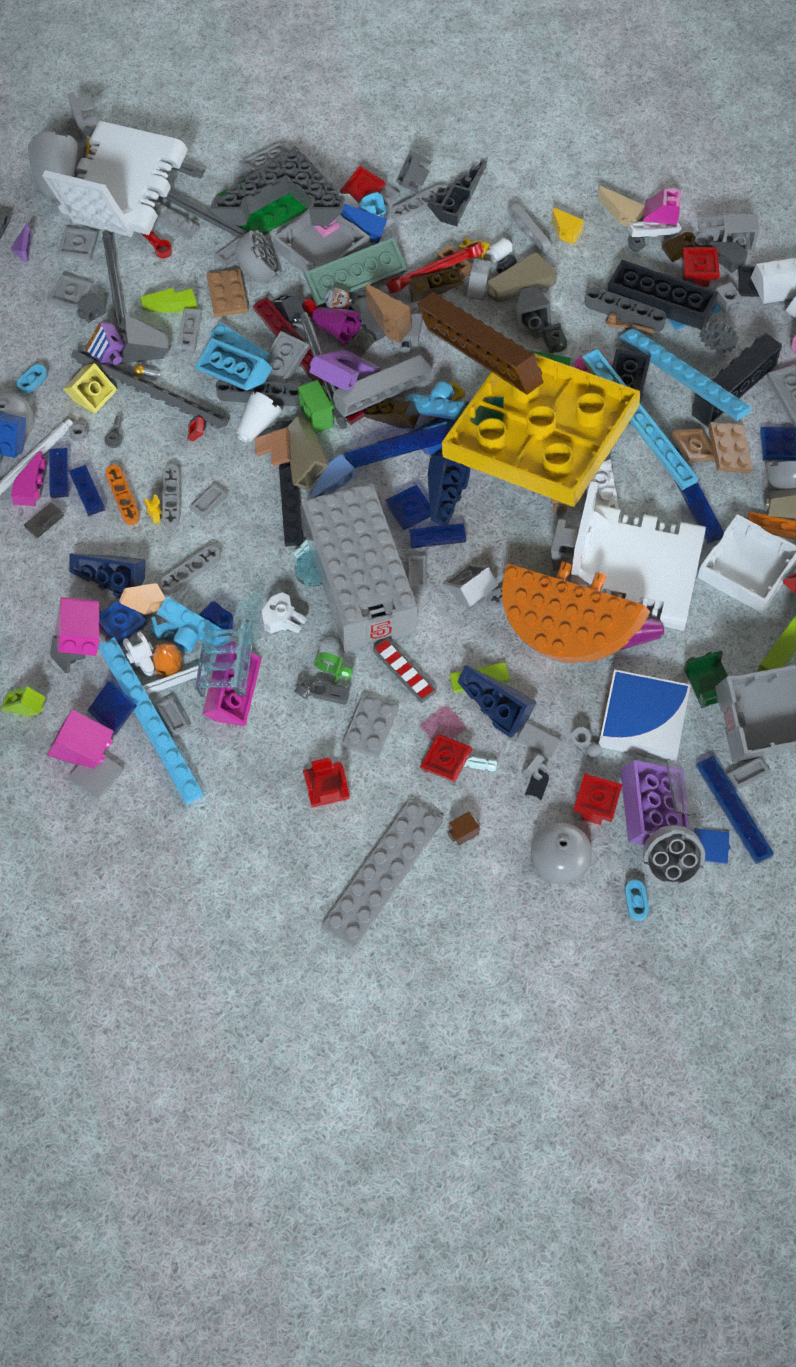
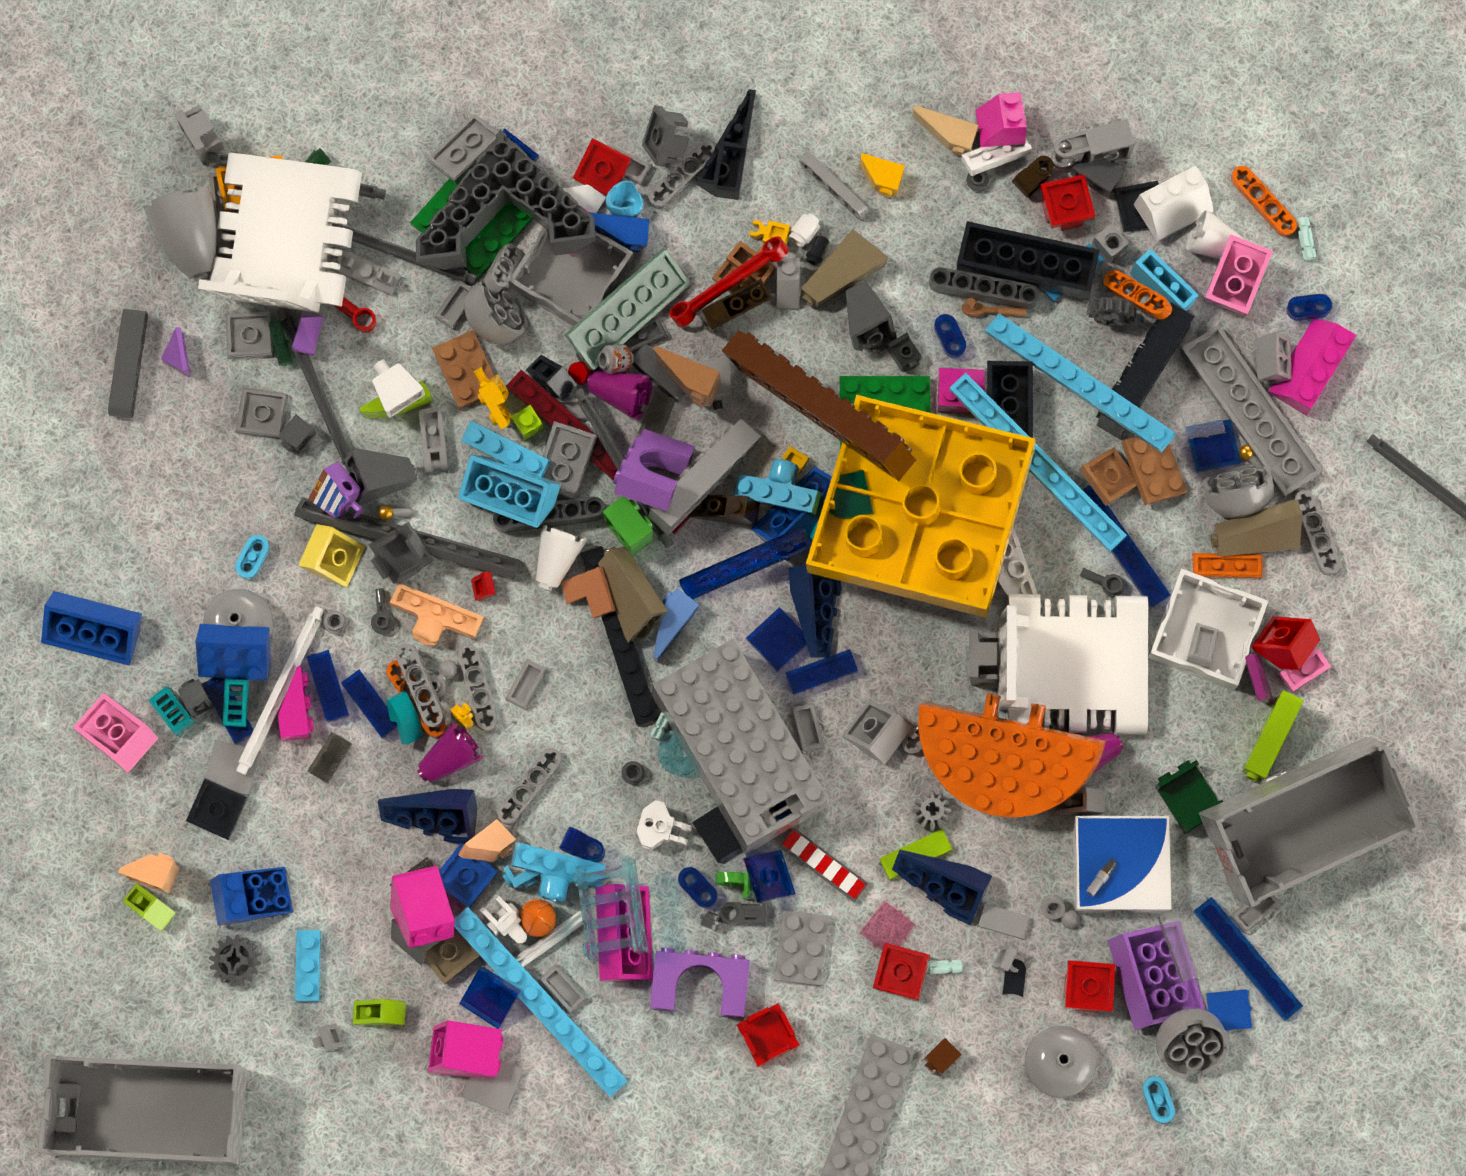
camera: 15 degrees left, 15 degrees up
(90, 673) = (451, 957): none -> dark tan plate
(97, 251) = (280, 343): none -> clear green axle
(109, 500) = (404, 713): none -> teal slope
(118, 246) = (307, 333): none -> medium lavender slope
(127, 482) = (423, 684): none -> light grey beam
(134, 533) = (450, 754): none -> magenta cone
(139, 392) = (399, 554): none -> dark grey panel
(151, 479) = (446, 671): none -> light grey plate
(153, 441) = (434, 615): none -> light nougat plate
(170, 286) = (395, 387): none -> white torso
(241, 304) = (494, 394): none -> yellow plate
(260, 330) = (527, 423): none -> lime brick
(263, 716) = (671, 965): none -> medium lavender arch
(269, 572) = (629, 766): none -> dark grey plate
(270, 229) = (508, 264): none -> light grey beam
(299, 666) = (698, 887): none -> clear blue plate
(325, 632) = (716, 834): none -> black tile
(357, 666) = (769, 876): none -> clear blue tile
(492, 650) = (925, 815): none -> light grey gear
(592, 336) = (950, 336): none -> clear blue plate
(620, 660) = (1083, 803): none -> light grey slope
(625, 716) = (1101, 877): none -> light grey piece
(676, 517) = (1112, 584): none -> dark grey plate
(743, 571) = (1202, 645): none -> light grey tile
(744, 329) = (1137, 294): none -> orange beam
(758, 322) = (1159, 277): none -> medium azure brick
(774, 422) = (1202, 419): none -> clear piece
(784, 602) = (1259, 679): none -> magenta tile

